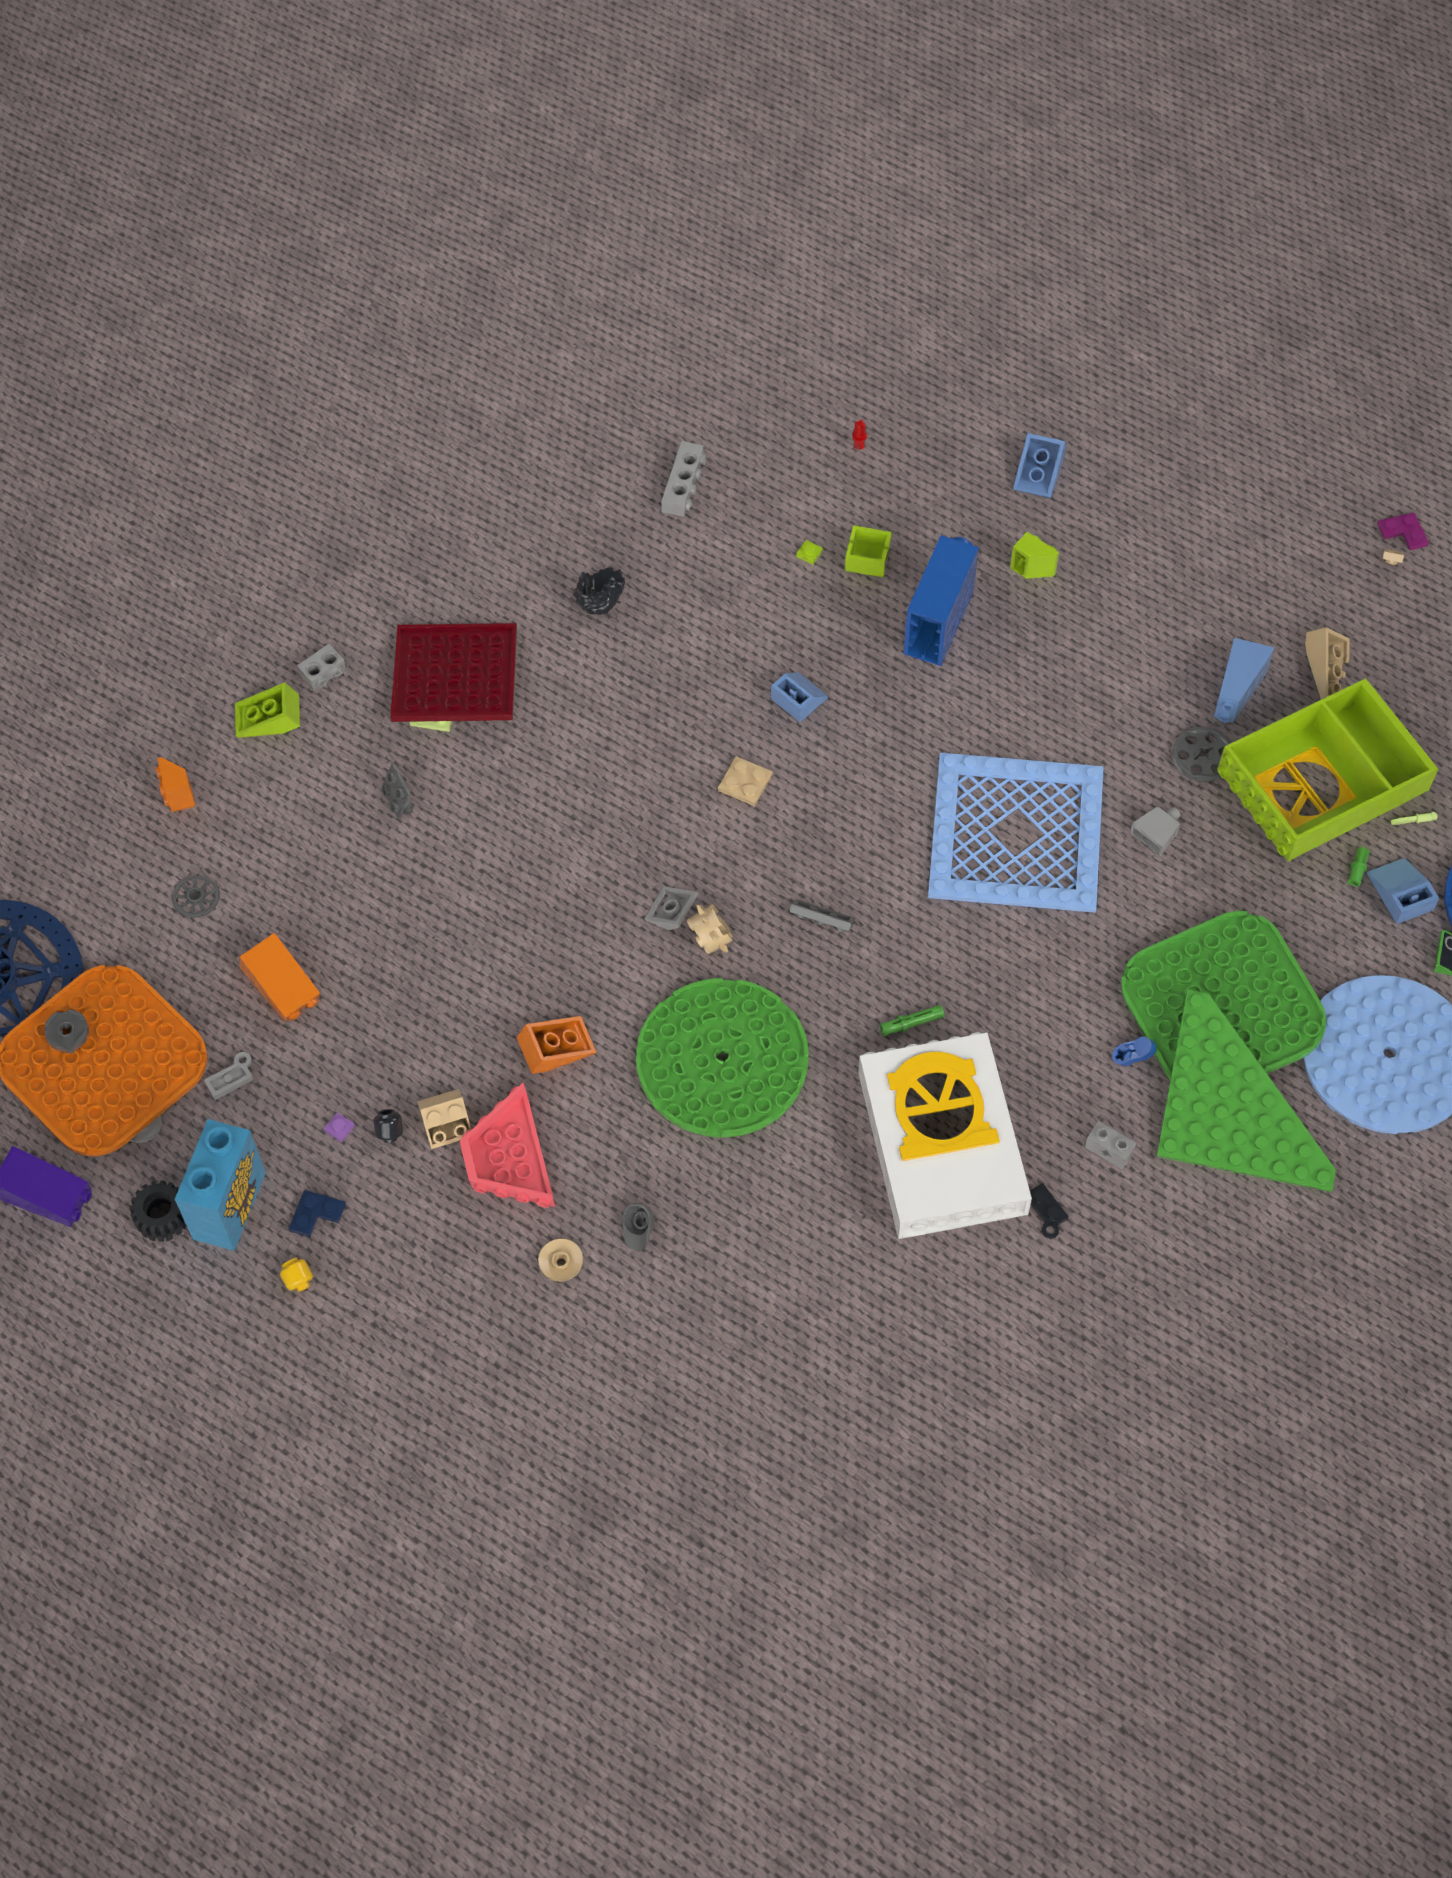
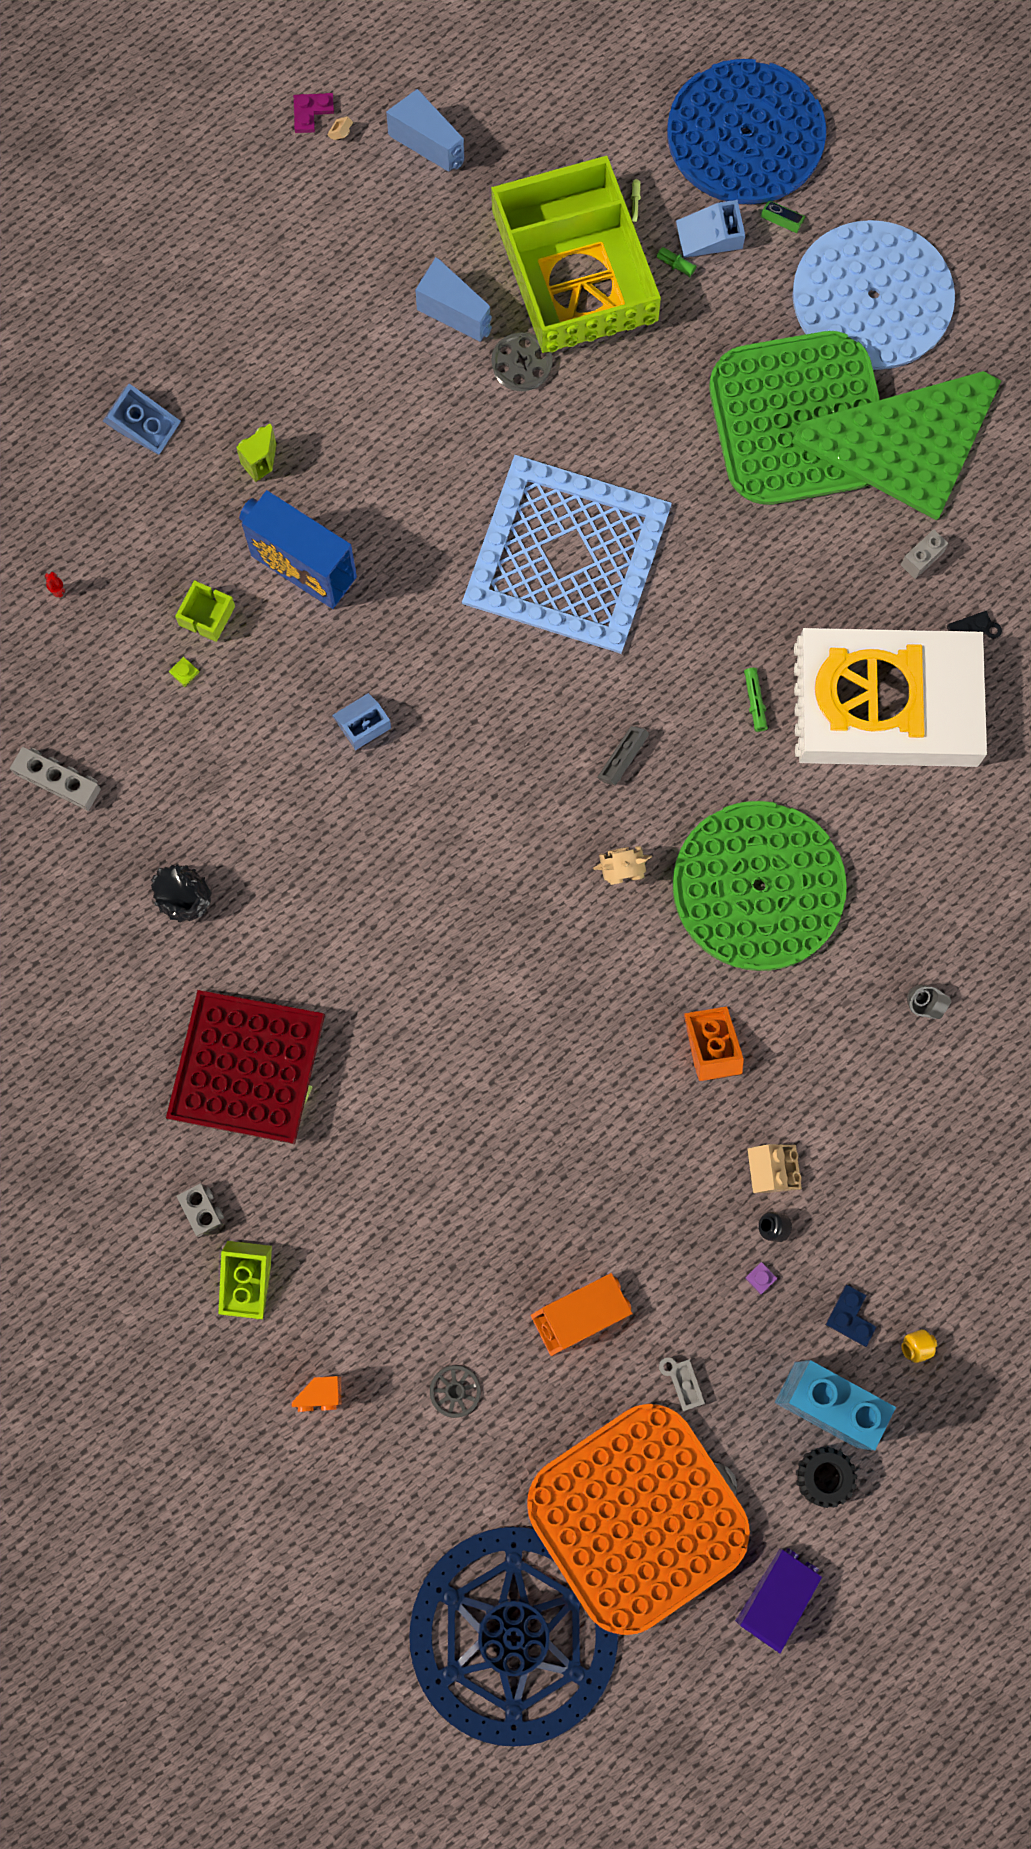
camera: 80 degrees left, 15 degrees up
(69, 1042) = (619, 1551): dark grey plate -> none
(396, 792) = (383, 1154): dark grey hinge -> none
(505, 1153) = (826, 1115): coral piece -> none
(558, 1250) = (959, 1078): tan dish -> none
(674, 908) = (584, 897): light grey slope -> none
(745, 781) = (448, 796): tan plate -> none
(1134, 1051) = (833, 517): blue piece -> none
(1157, 828) = (598, 423): light grey torso -> none
(1326, 655) = (438, 221): tan wedge -> none
(1416, 618) = (425, 131): none -> medium blue slope

